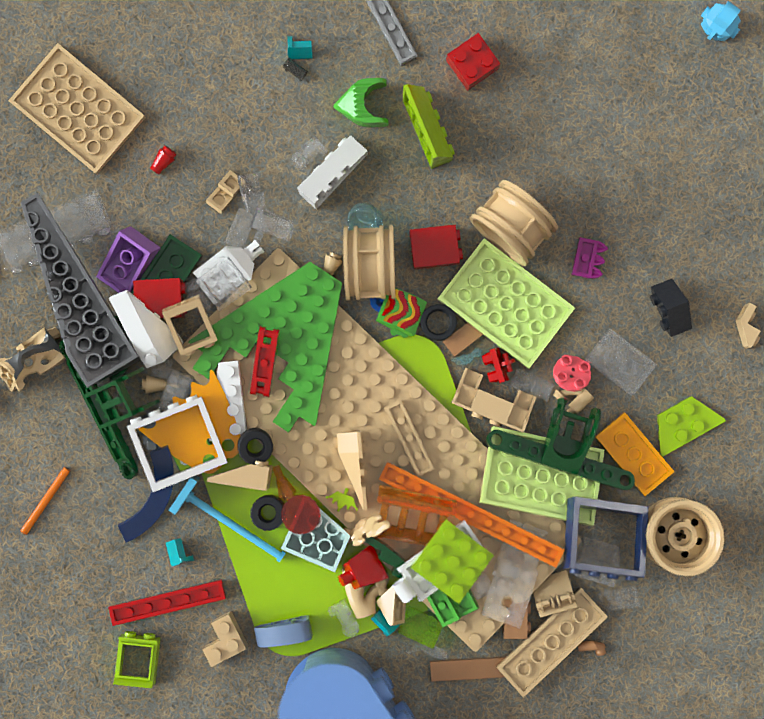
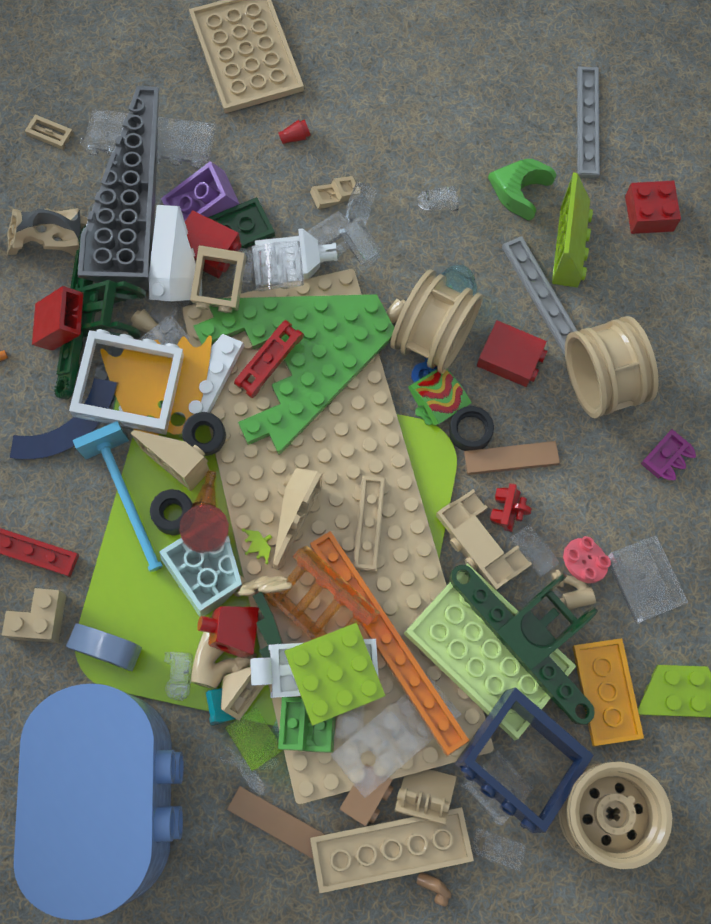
camera: 30 degrees right, 15 degrees down
(90, 424) = (57, 318): none -> red brick
(177, 553) = (51, 499): teal tile -> none
(295, 69) = (471, 123): clear smoke pin -> none
(299, 49) = (487, 109): teal tile -> none
(332, 171) = (449, 228): white wedge -> none
(428, 182) = (539, 290): none -> light grey tile
(467, 358) = (477, 482): clear light blue piece -> none
(506, 303) = (555, 451): yellowish green plate -> none

